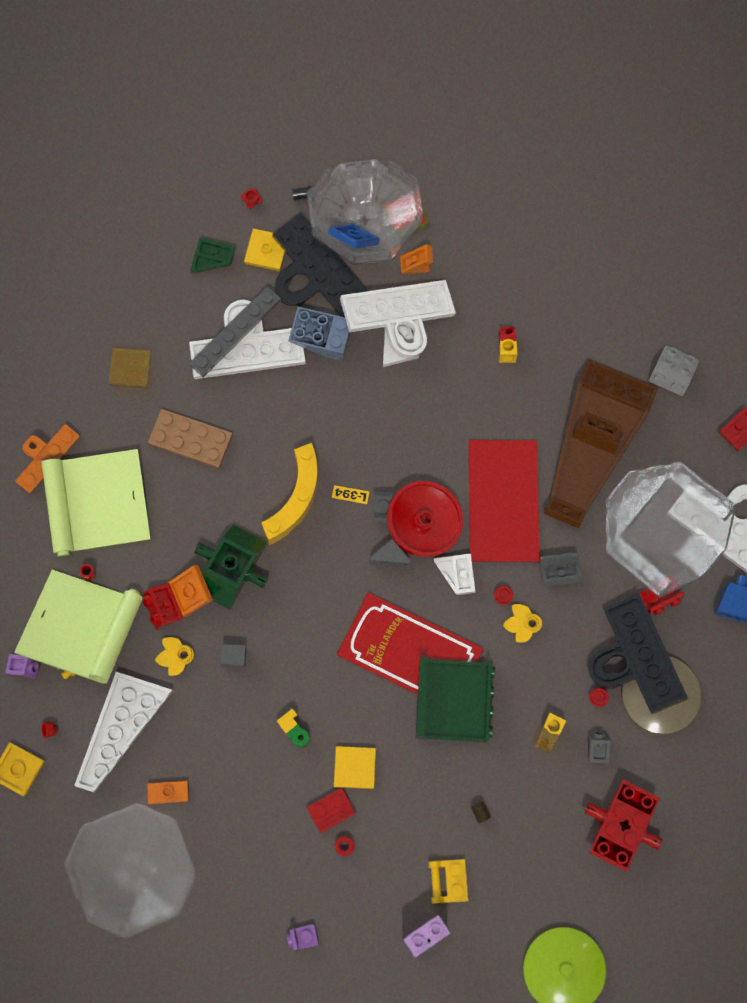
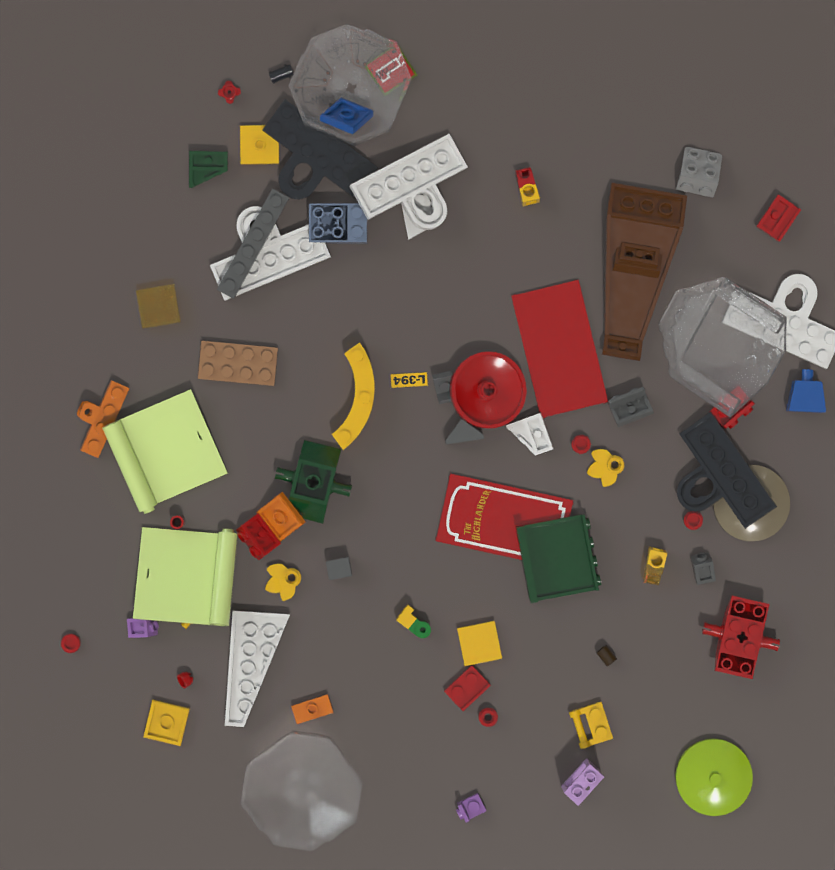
camera: 15 degrees left, 15 degrees up
(417, 260) = (415, 120): orange slope -> none

